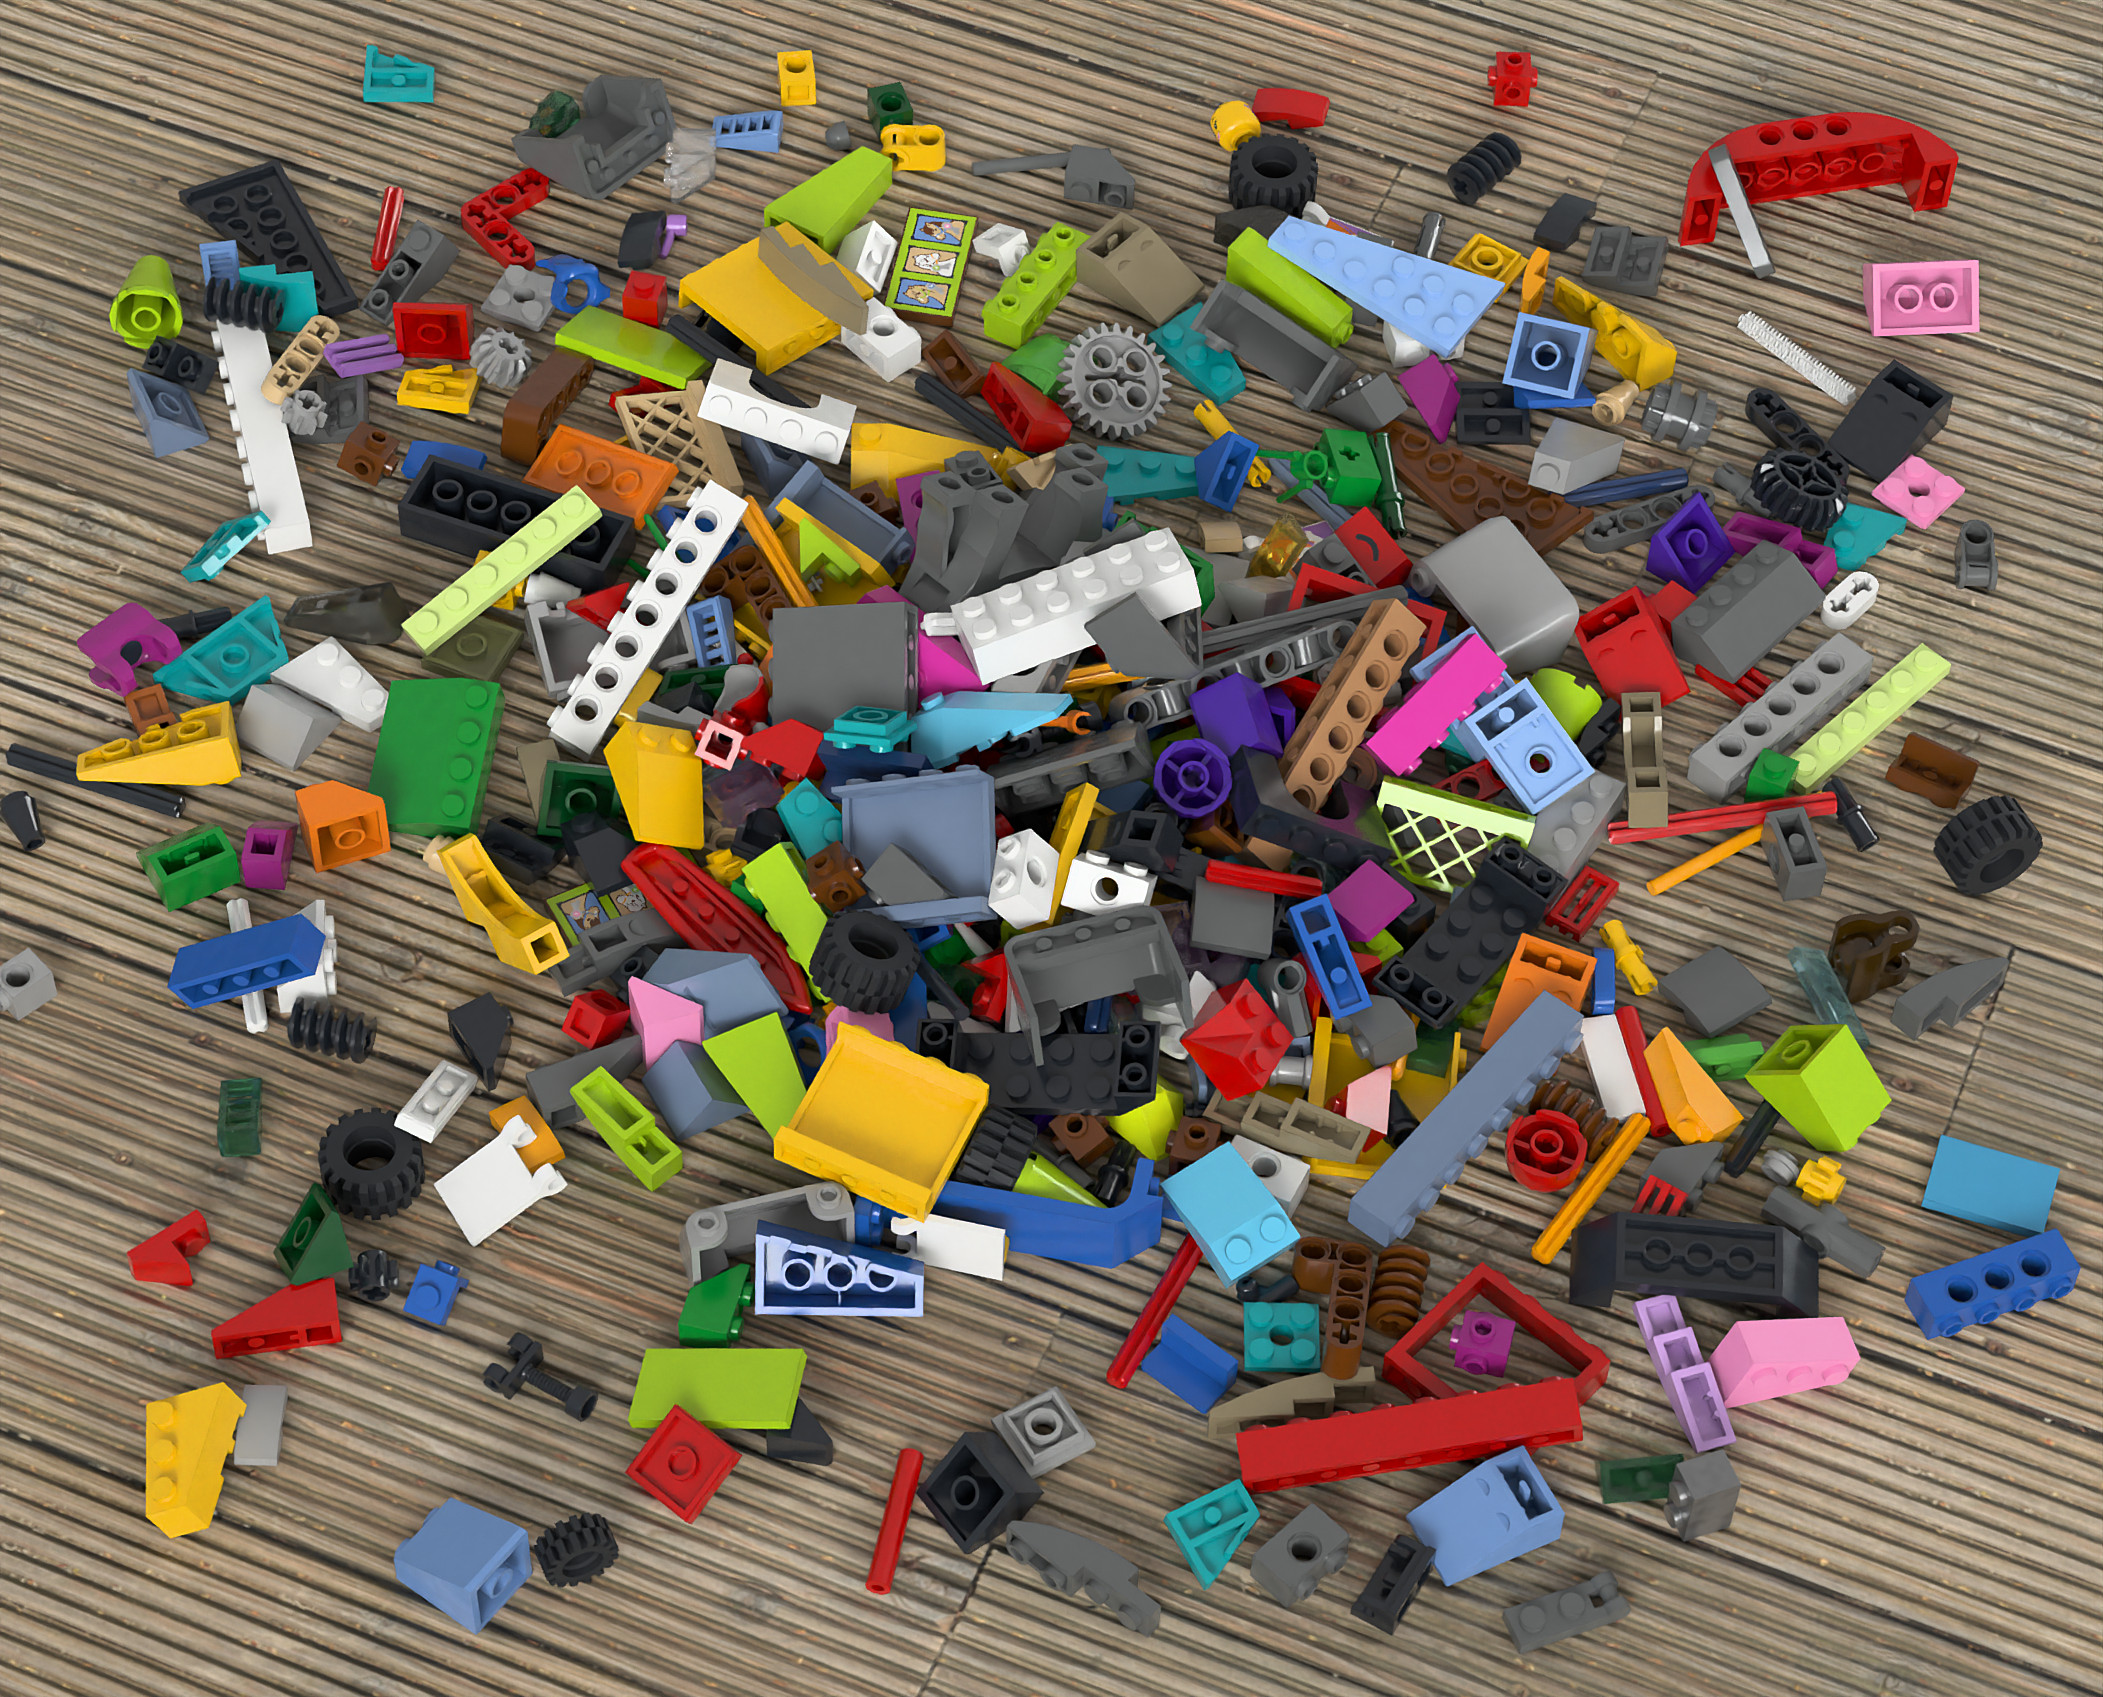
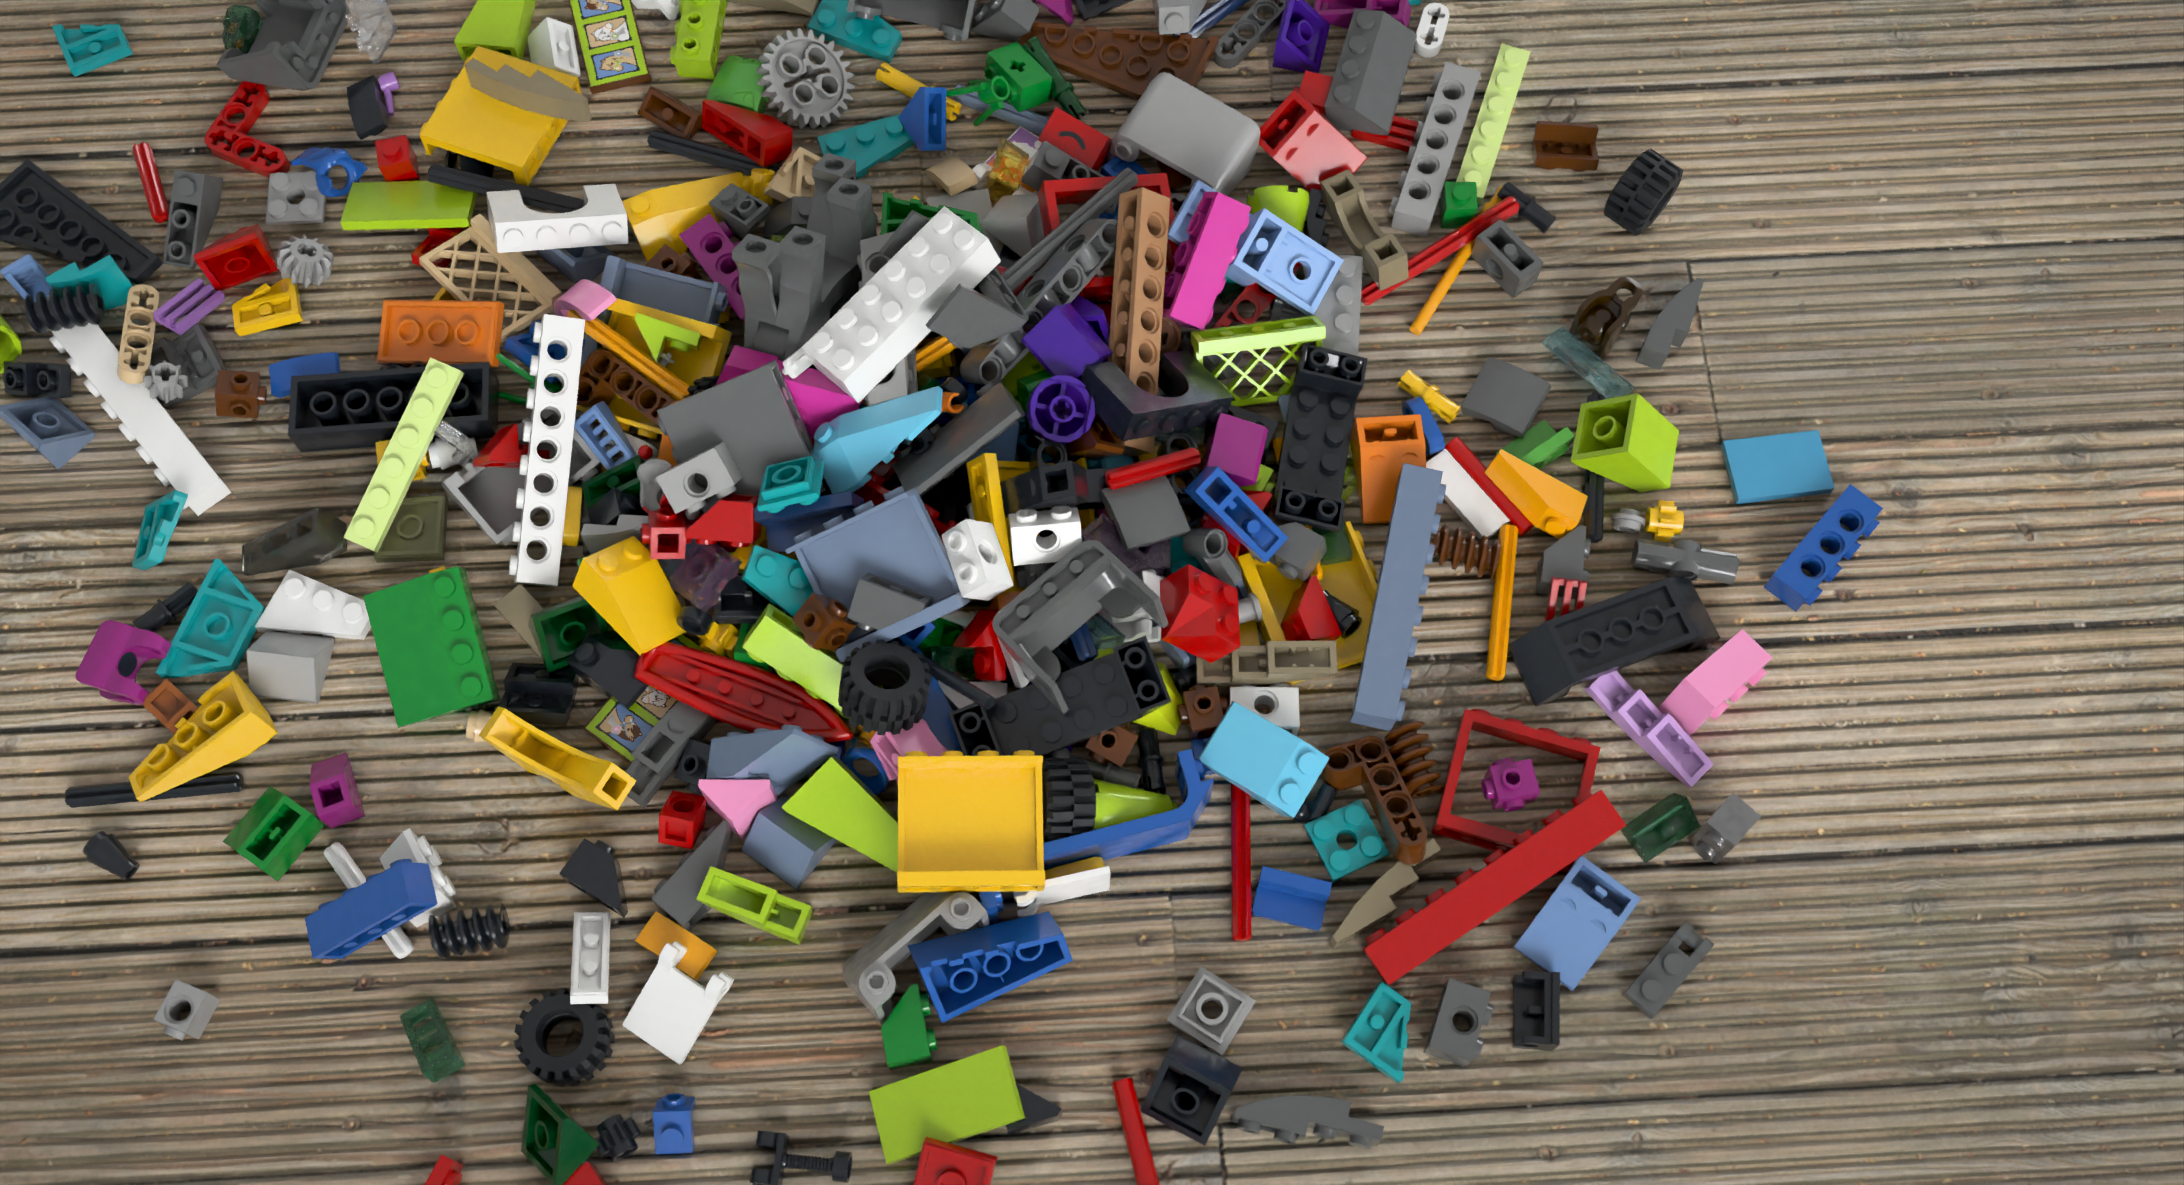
camera: 25 degrees left, 15 degrees up
(341, 824) = (384, 742): orange slope -> none
(542, 402) = (360, 287): reddish brown beam -> none
(562, 577) = (457, 440): none -> clear arm
(709, 836) = (694, 620): none -> black tile
(761, 688) = (680, 484): none -> light grey brick
(762, 491) = (586, 298): none -> bright pink slope
(888, 343) = (614, 127): white brick -> none
(1545, 1151) = (1463, 592): red cylinder -> none
(1568, 924) = (1370, 388): red tile -> none

